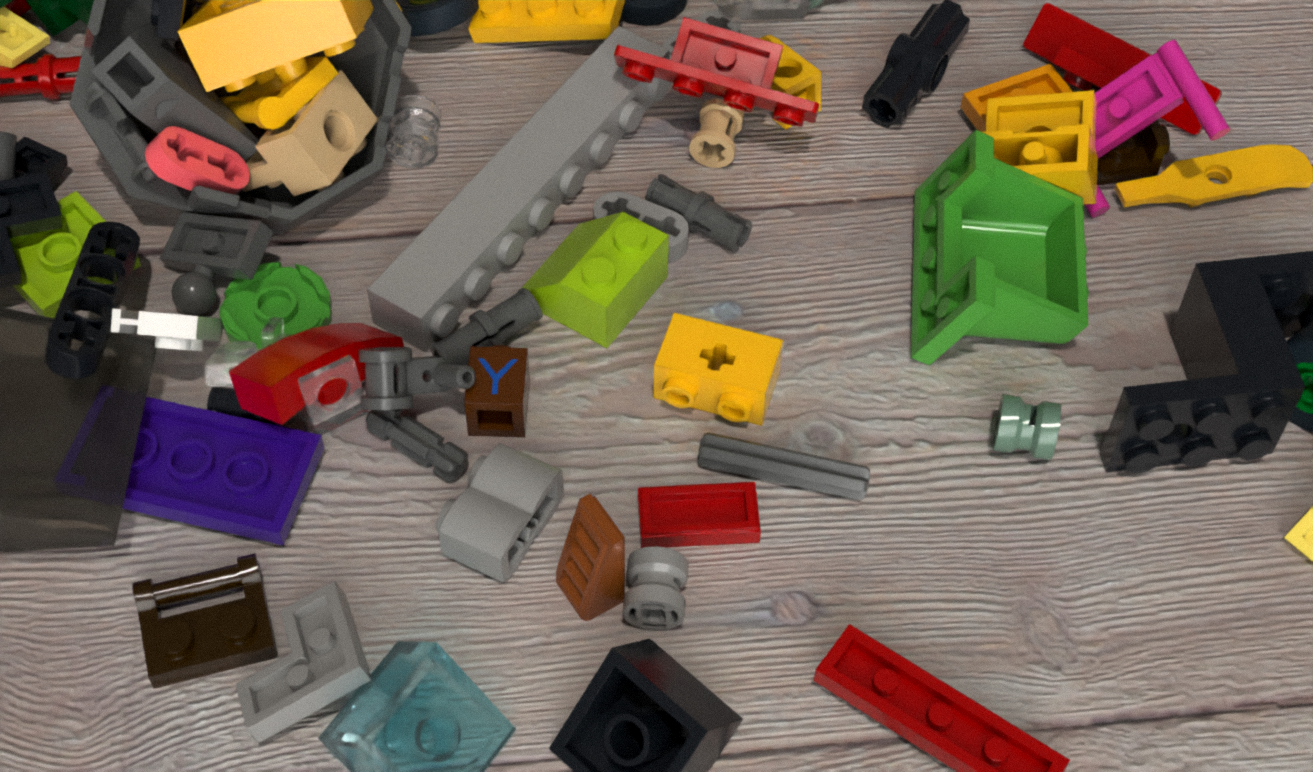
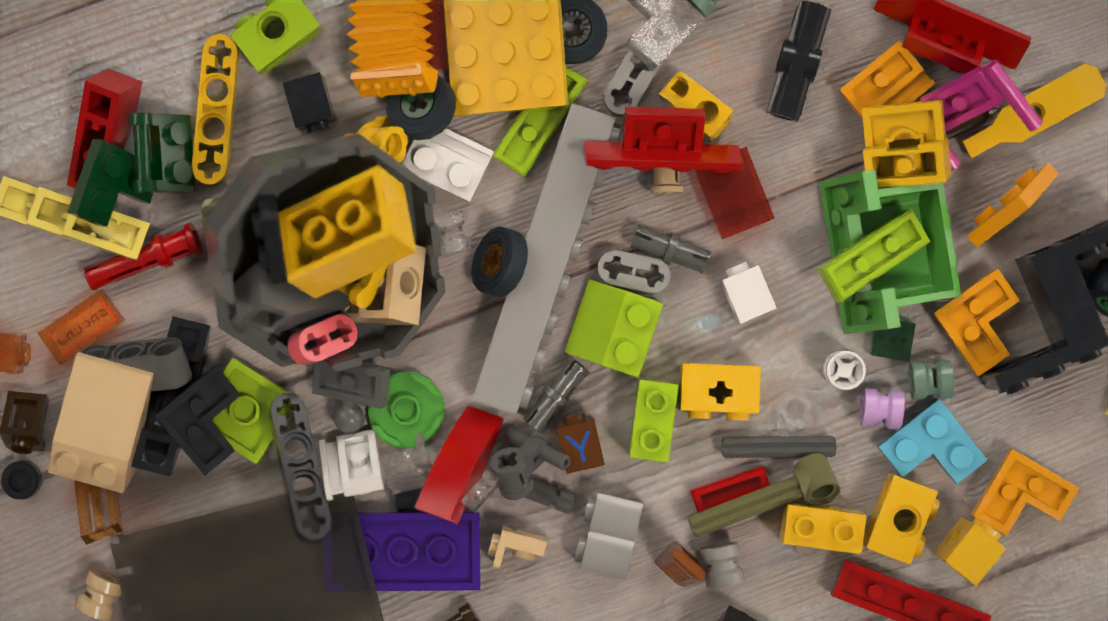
camera: 20 degrees left, 35 degrees up
(362, 486) = (524, 545): none -> tan bracket
(449, 74) = (449, 163): none -> white plate
(467, 160) = (499, 261): none -> black bush
(547, 70) = (534, 130): none -> lime tile
(610, 382) = (653, 420): none -> lime brick
(751, 512) = (811, 481): none -> olive axle
(788, 274) = (747, 292): none -> white brick
(798, 172) = (735, 198): none -> clear red plate
(822, 570) = (822, 527): none -> yellow brick
(902, 387) = (849, 372): none -> white wheel
(944, 248) = (873, 255): none -> lime tile
(946, 445) = (879, 408): none -> lavender wheel
(955, 560) = (897, 495): none -> yellow brick
(979, 378) = (894, 342): none -> clear green tile
(1017, 503) = (937, 434): none -> medium azure plate
(1048, 639) = (970, 549): none -> yellow brick
(1098, 367) = (967, 320): none -> light orange plate
(1150, 590) = (1022, 482): none -> light orange plate
(1183, 229) = (1014, 203): none -> light orange plate

